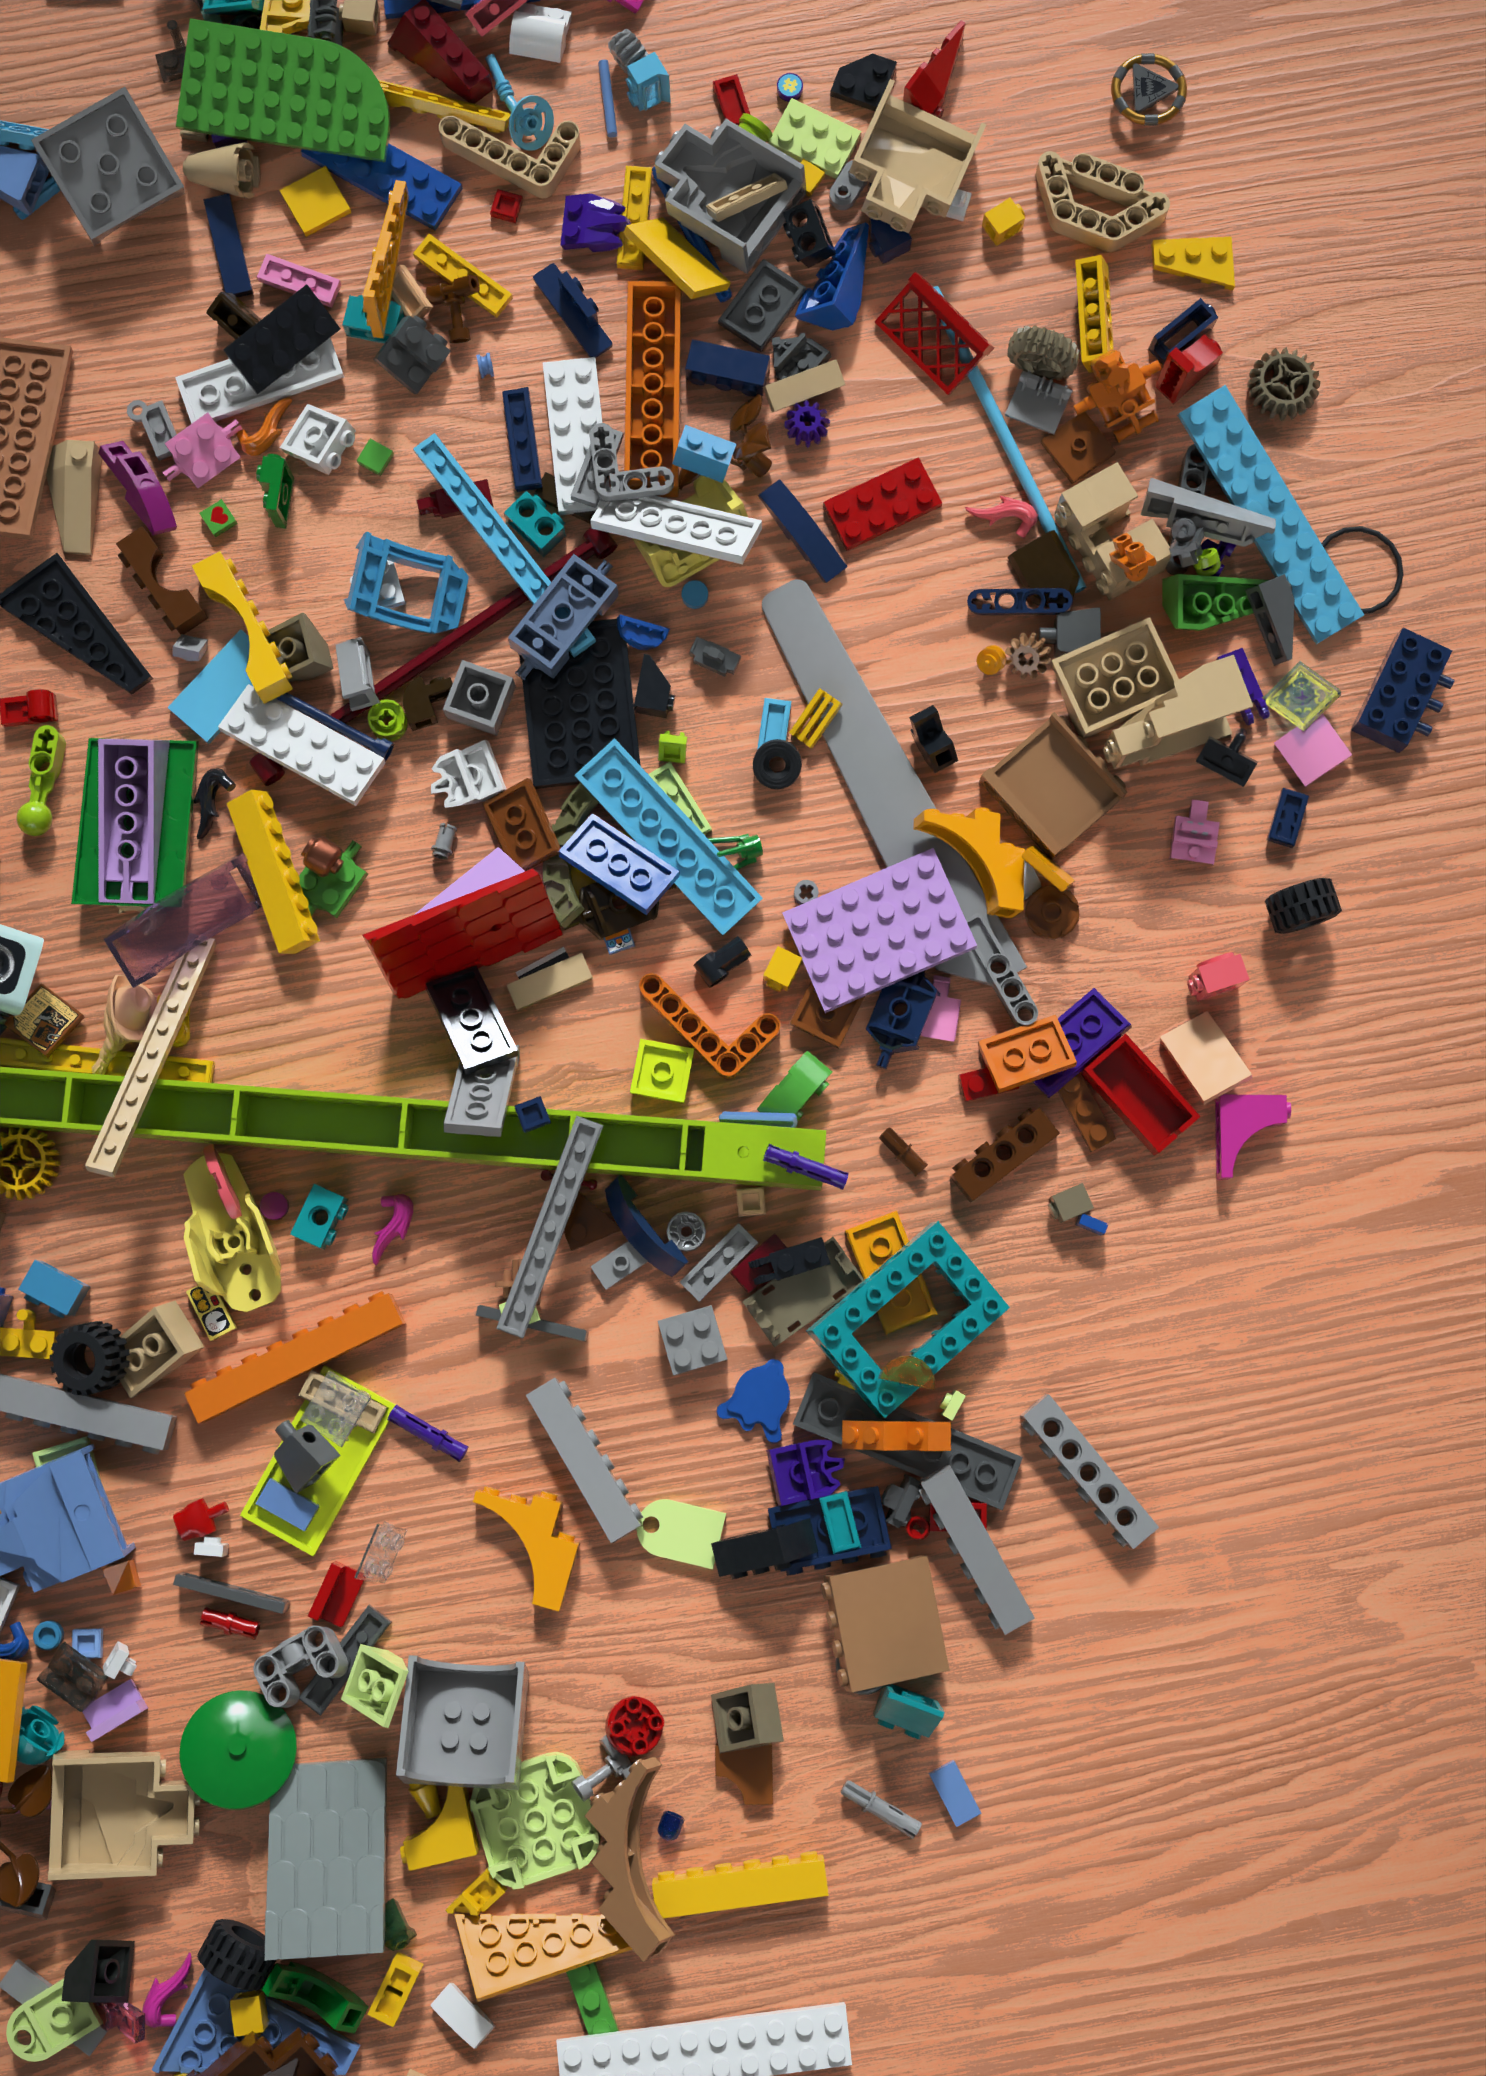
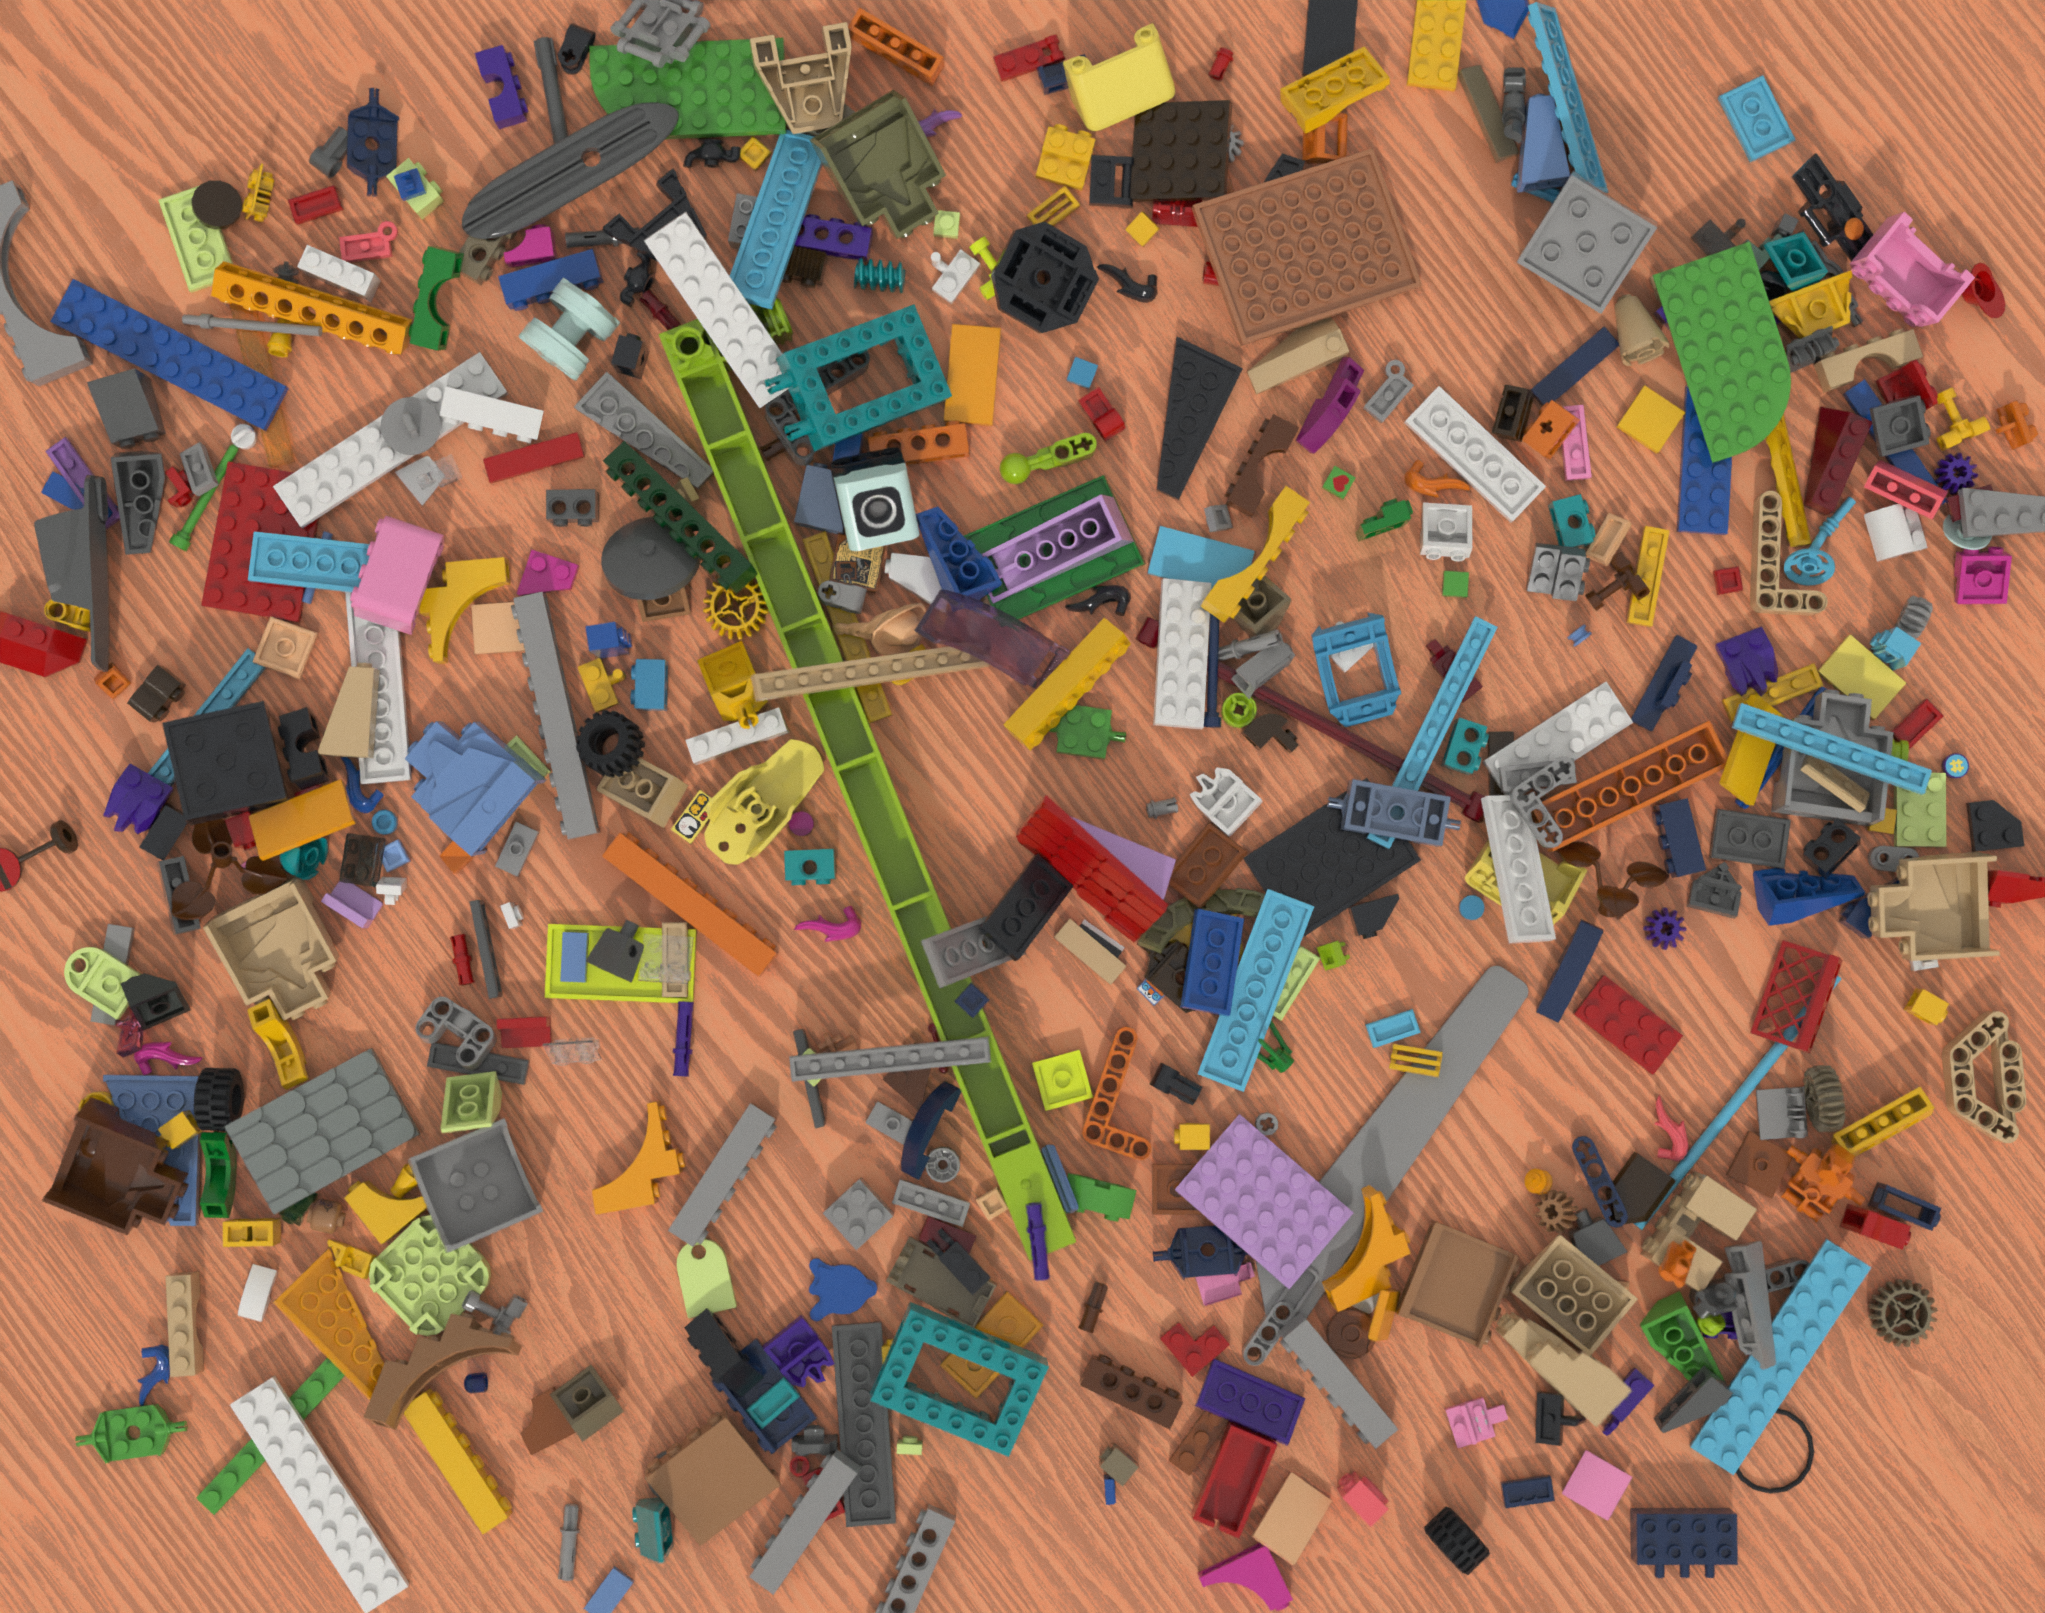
camera: 65 degrees right, 5 degrees up
(69, 1047) = (847, 597): none -> light grey piece
(86, 917) = (954, 557): none -> blue wedge
(86, 965) = (914, 575): none -> white slope
(97, 1203) = (730, 684): none -> yellow plate
(147, 1509) = (517, 849): none -> light grey plate
(153, 1203) = (733, 736): none -> white arch
(198, 1519) = (528, 892): red piece -> none
(202, 450) = (1388, 441): bright pink plate -> none
(213, 1858) = (281, 1043): none -> yellow arch
(225, 1191) = (793, 782): coral tile -> none
(238, 1750) = (369, 1017): green dish -> none
(266, 278) = (1549, 442): none -> orange brick
(281, 339) = (1513, 459): black plate -> none
(322, 856) = (1098, 719): copper head -> none
(329, 668) = (1249, 645): none -> light grey axle
(384, 261) = (1625, 510): light orange wing -> none
(419, 1900) = (326, 1216): none -> medium nougat head
(479, 697) = (1294, 776): light grey brick -> none
(522, 439) = (1531, 698): dark blue tile -> none
(607, 98) = (1866, 617): medium blue bar -> none
(634, 1726) = (537, 1317): red tile -> none
(641, 633) = (1414, 880): blue tile -> none
(651, 129) = (1859, 671): none -> light yellow tile
(704, 453) = (1590, 861): dark azure brick -> none
(711, 179) = (1831, 748): none -> medium azure plate
(714, 657) = (1426, 950): dark grey piece -> none
(773, 779) = (1370, 1038): black tyre -> none
(804, 385) = (1695, 910): tan tile -> none
(896, 1435) = (861, 1415): orange arch -> none
(908, 1371) = (916, 1403): clear orange tile -> none
(932, 739) = (1445, 1166): black brick -> none
(1027, 1053) = (1221, 1371): orange plate -> none
(1090, 944) = (1338, 1381): none -> light grey brick
(1199, 258) = (1979, 1188): yellow wing -> none
(1302, 696) = (1637, 1455): clear light blue tile -> none

